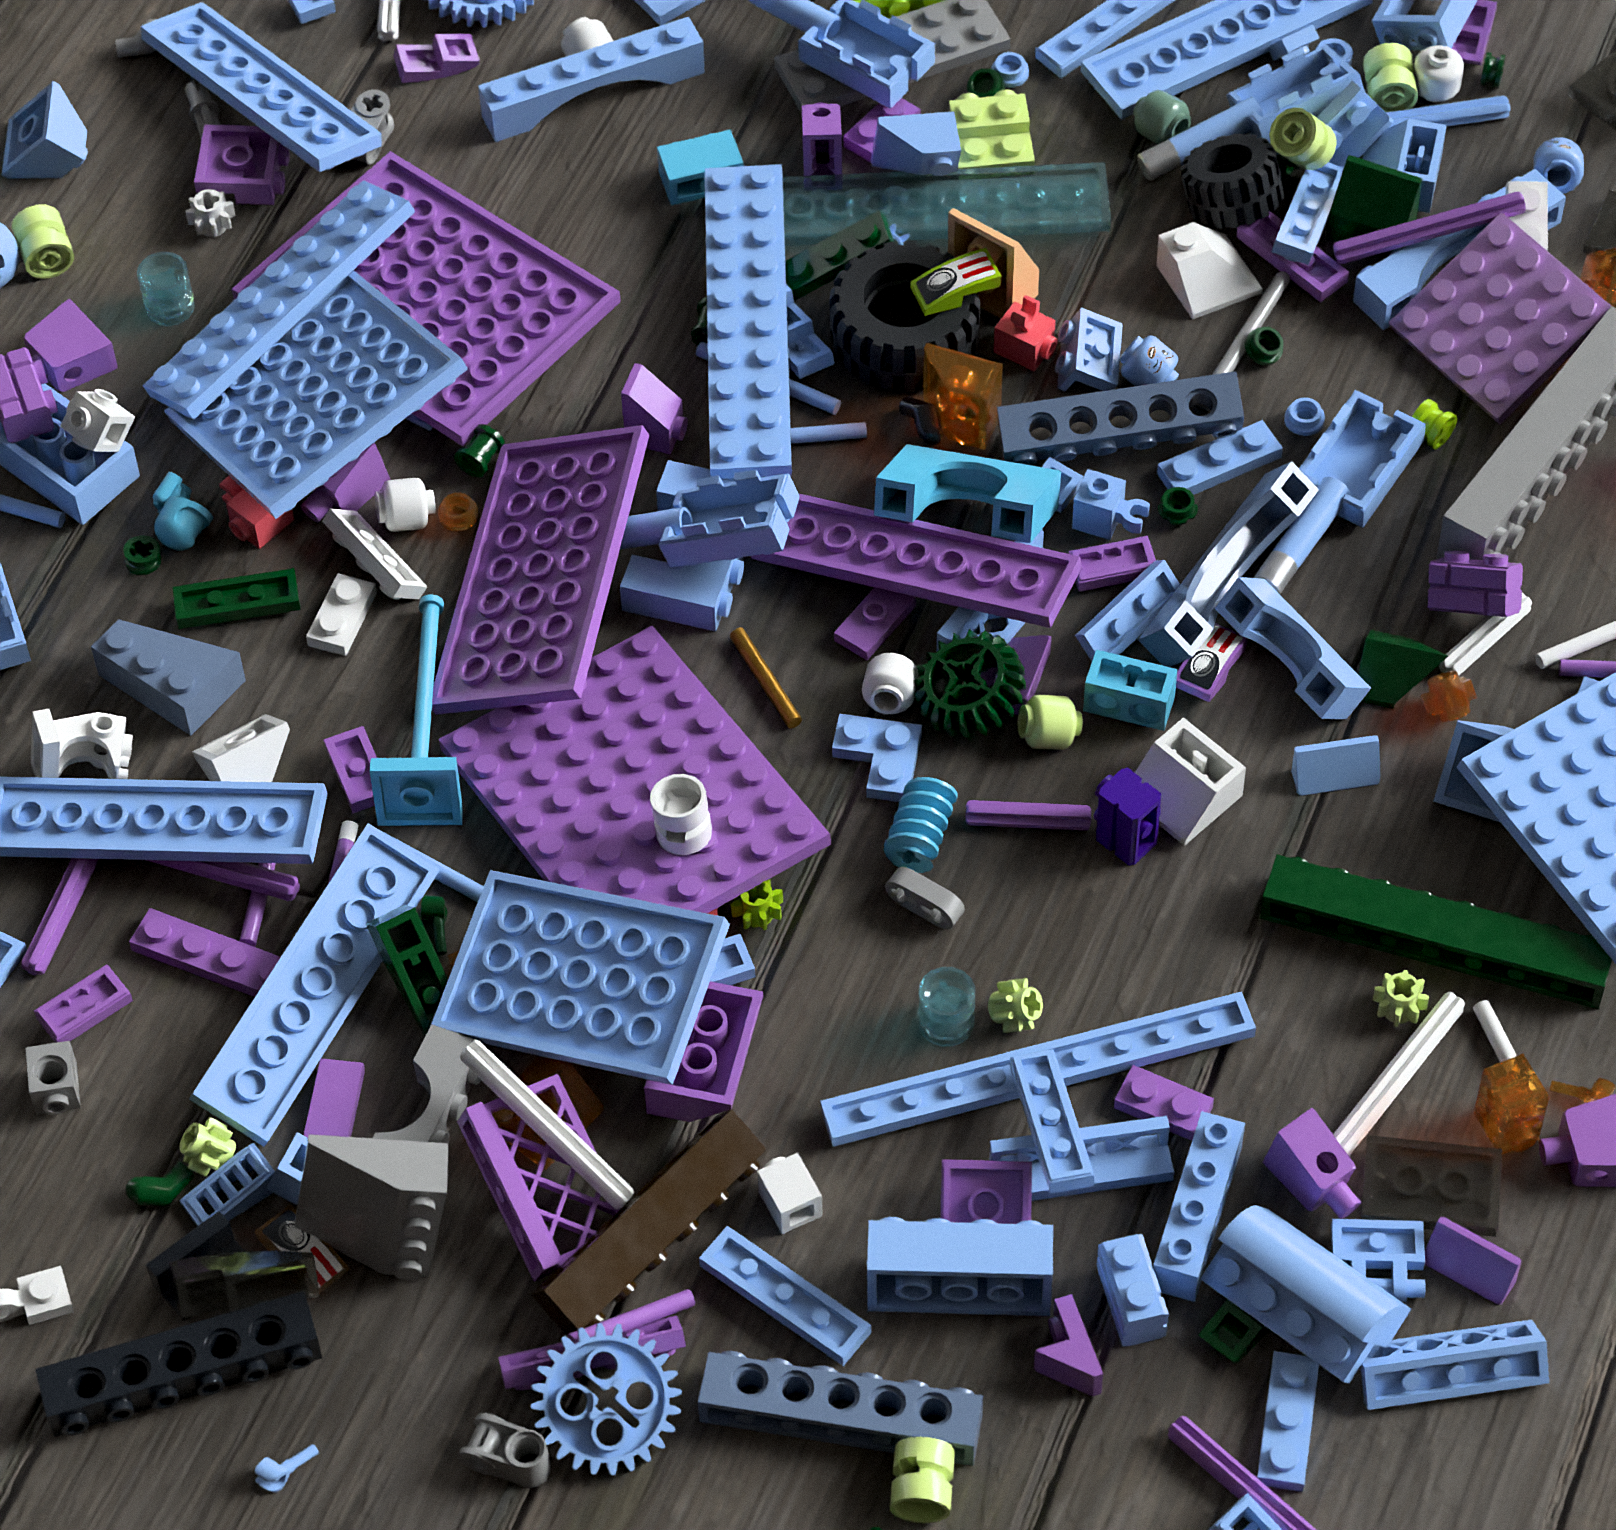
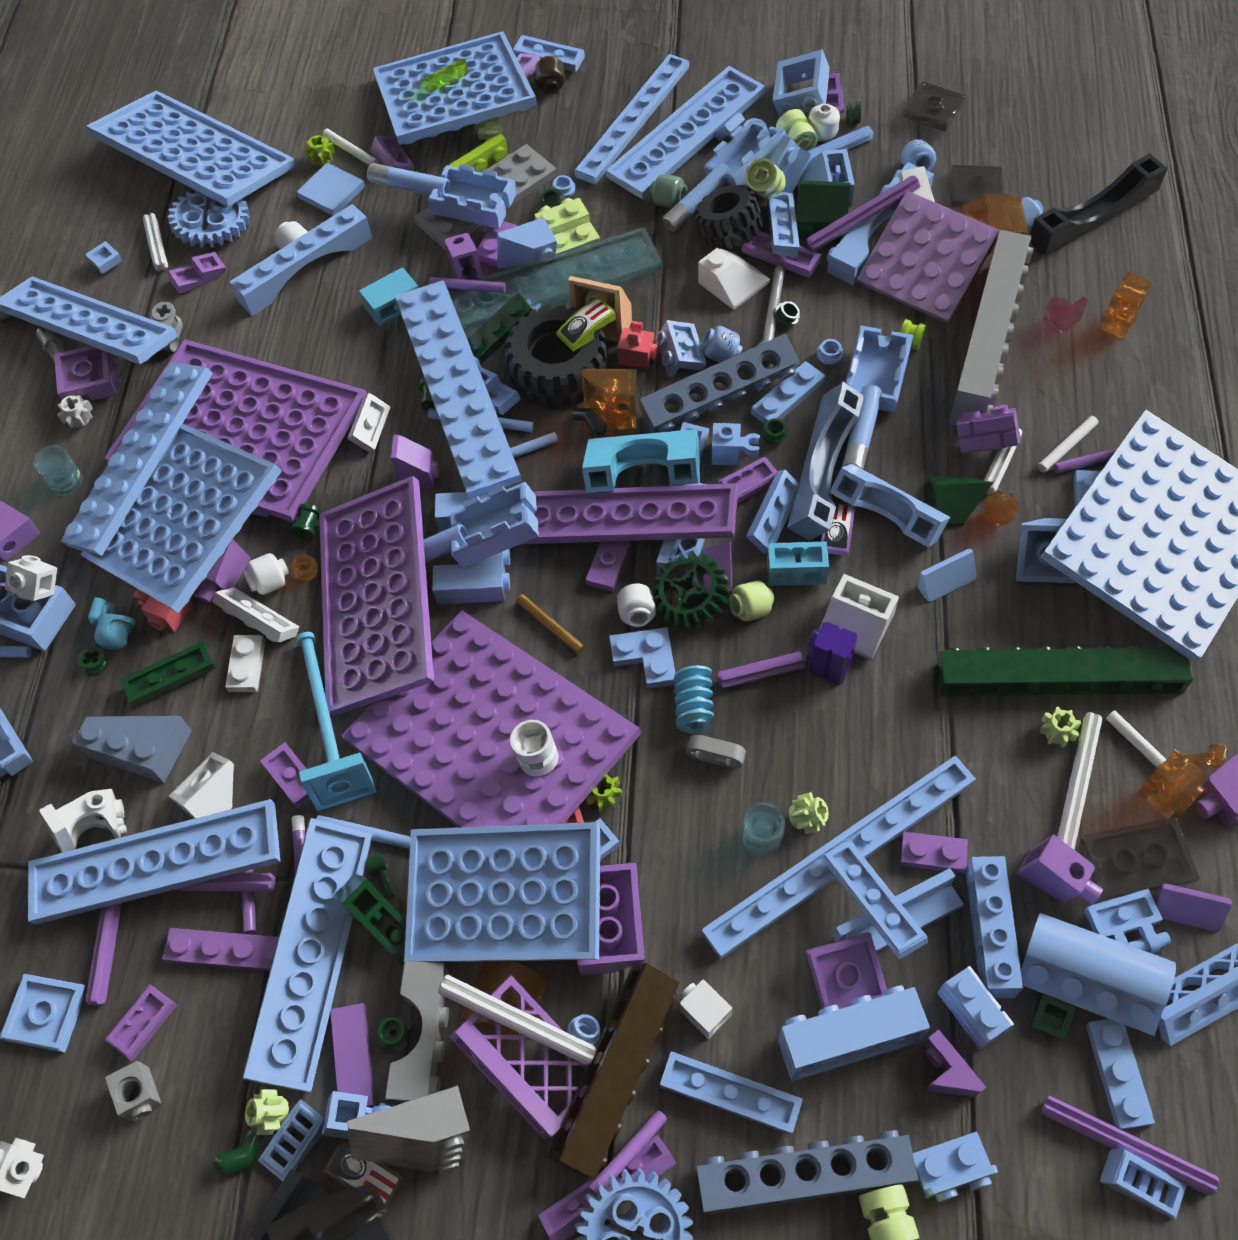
camera: 15 degrees left, 5 degrees up
(389, 1097) = (384, 1036): none -> dark green plate
(610, 338) = (369, 422): none -> white plate
(631, 1170) = (585, 1028): none -> light blue plate
(819, 181) = (473, 285): none -> medium lavender bar
(1028, 1457) = (952, 1166): none -> light blue bracket

